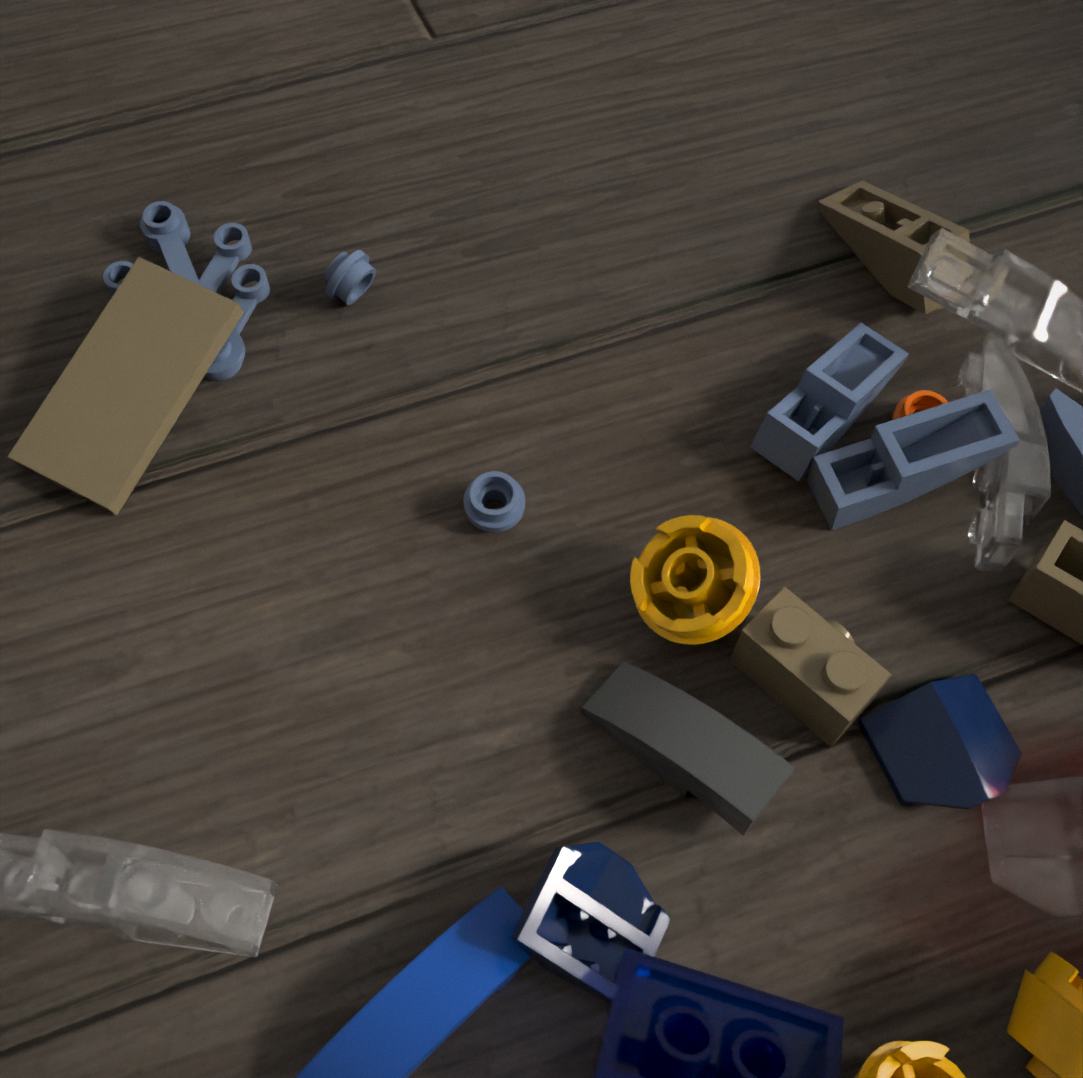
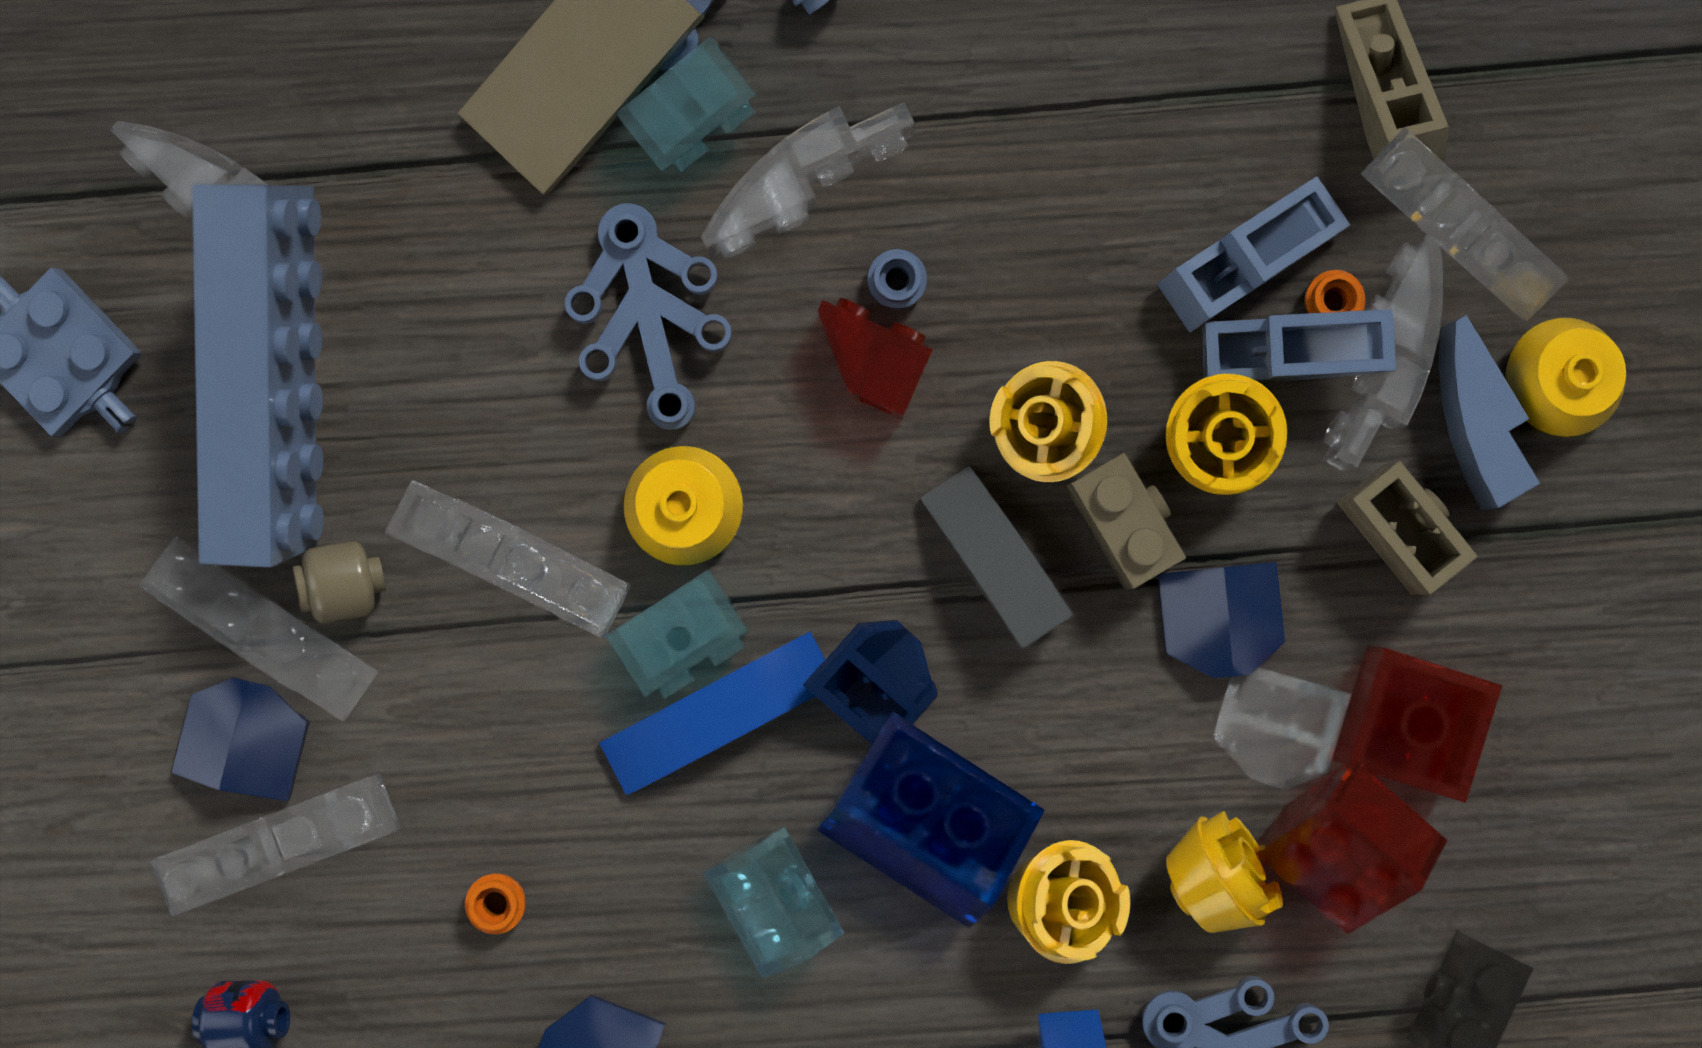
camera: 20 degrees right, 25 degrees up
(238, 588) = (645, 305): none -> sand blue plant
(244, 389) = (689, 105): none -> clear light blue brick
(321, 781) = (683, 505): none -> yellow cone
(348, 928) = (678, 635): none -> clear light blue brick
(355, 436) = (778, 185): none -> clear slope
(490, 575) = (874, 362): none -> clear red slope
(879, 547) = (1226, 434): none -> yellow cone

